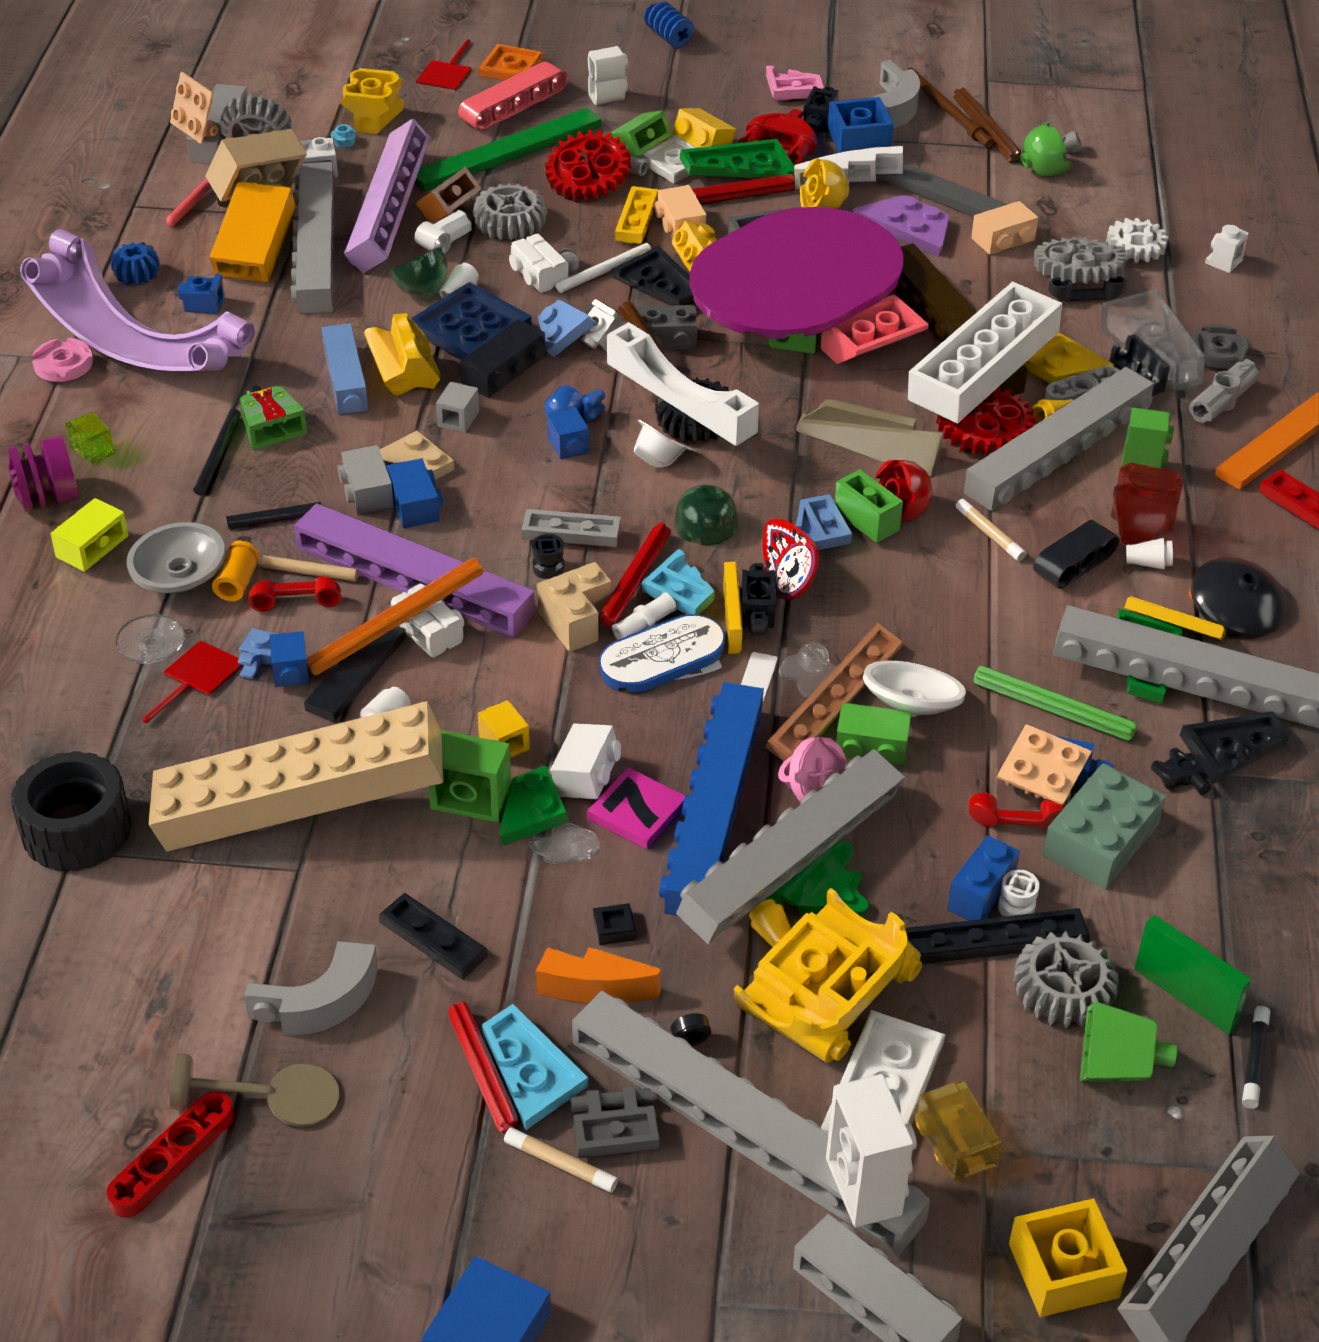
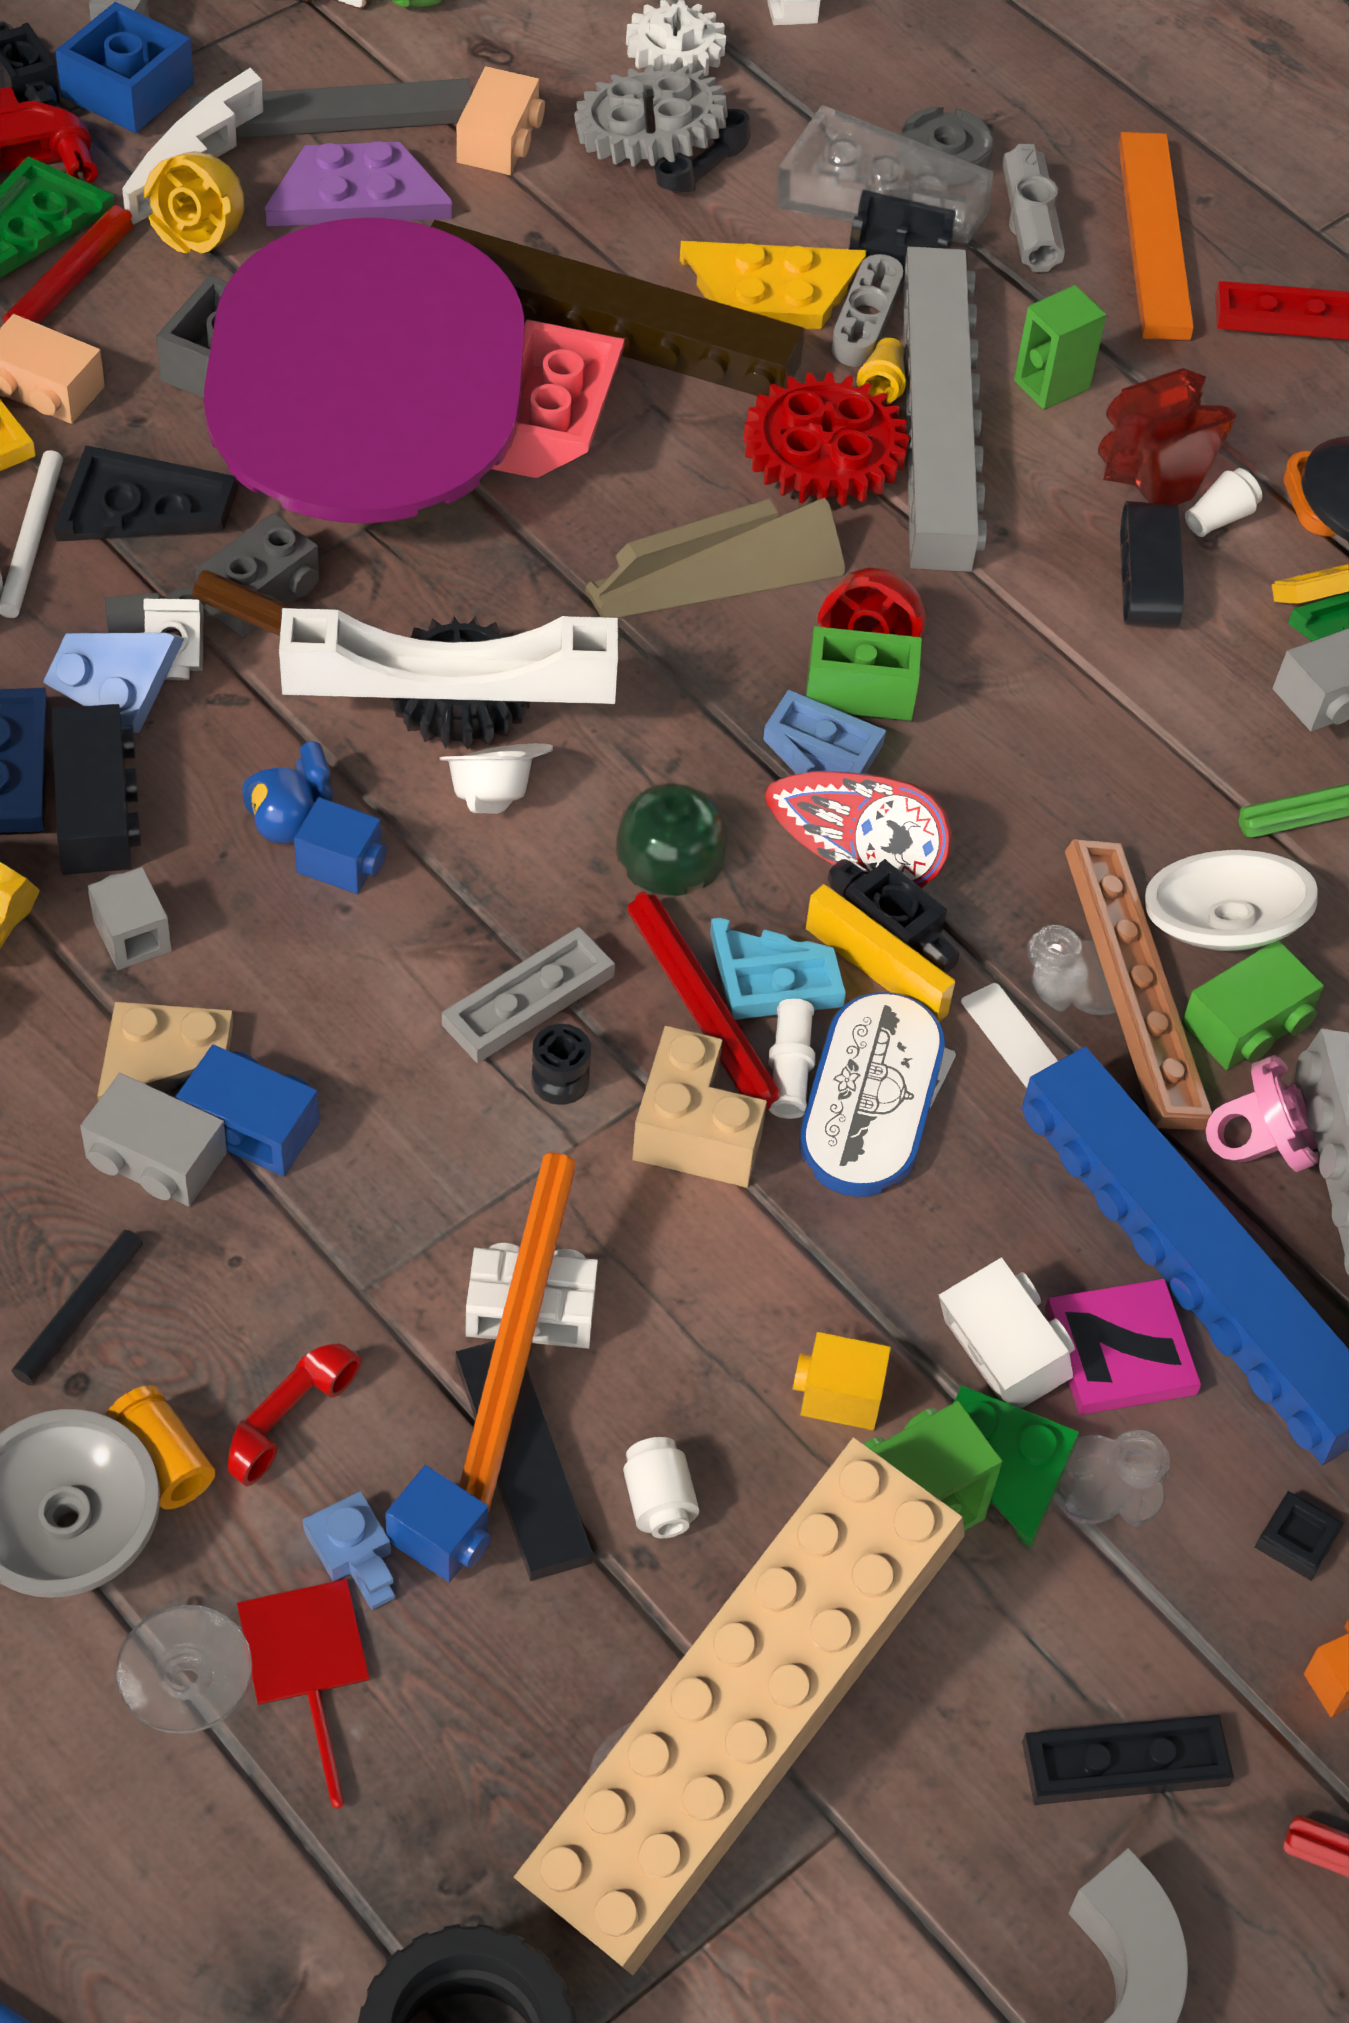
camera: 50 degrees left, 10 degrees up
(309, 568) = (246, 1351): tan bar -> none
(405, 564) = (392, 1235): medium lavender brick -> none
(691, 240) = (130, 410): yellow bracket -> none
(984, 352) = (759, 339): white brick -> none
(991, 530) = (1011, 600): tan bar -> none

